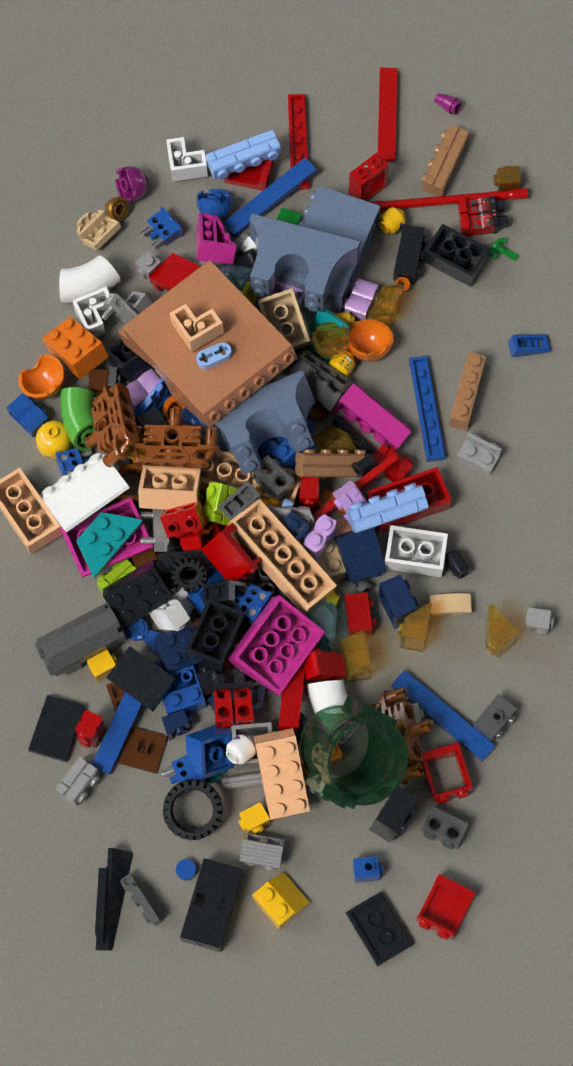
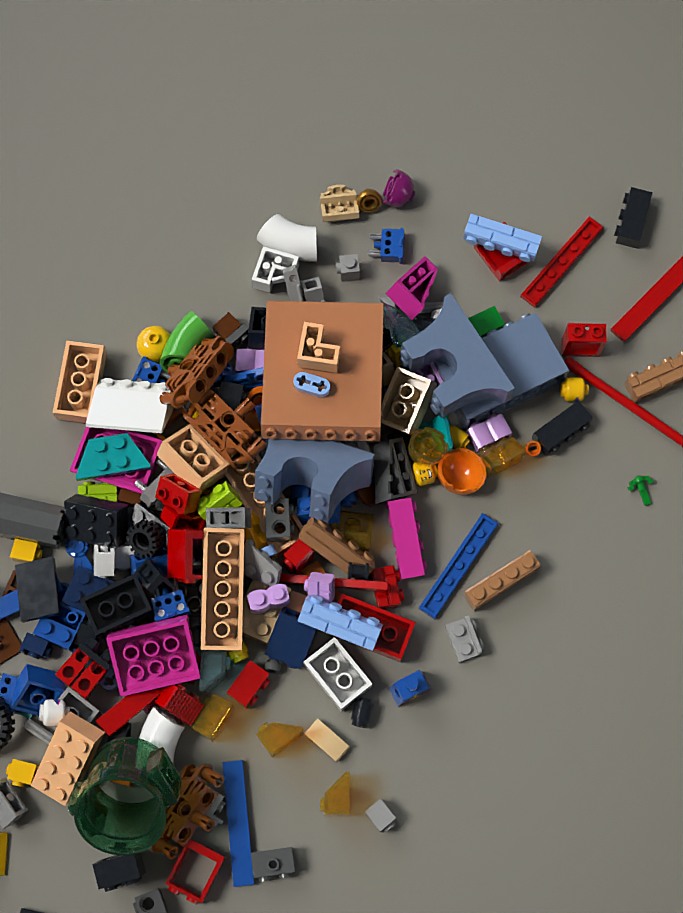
camera: 40 degrees right, 5 degrees up
(27, 414) = (153, 307): blue brick -> none
(43, 379) = (186, 290): orange cylinder -> none
(75, 347) = (232, 285): orange brick -> none
(172, 272) = (361, 288): red panel -> none
(185, 164) = (452, 206): white brick -> none
(215, 202) = (446, 258): blue cylinder -> none
(270, 196) = (496, 289): blue tile -> none
(296, 525) = (256, 574): dark blue bracket -> none
(320, 70) = (633, 217): none -> black brick
(357, 440) = (379, 530): black axle -> none
(367, 869) = (66, 890): blue brick -> none
(397, 599) = (285, 701): dark blue brick -> none
(456, 255) = (597, 461): black brick -> none
(474, 515) = (409, 687): none -> blue torso
(480, 216) = (649, 445): hips -> none
(517, 348) = (578, 585): blue slope -> none

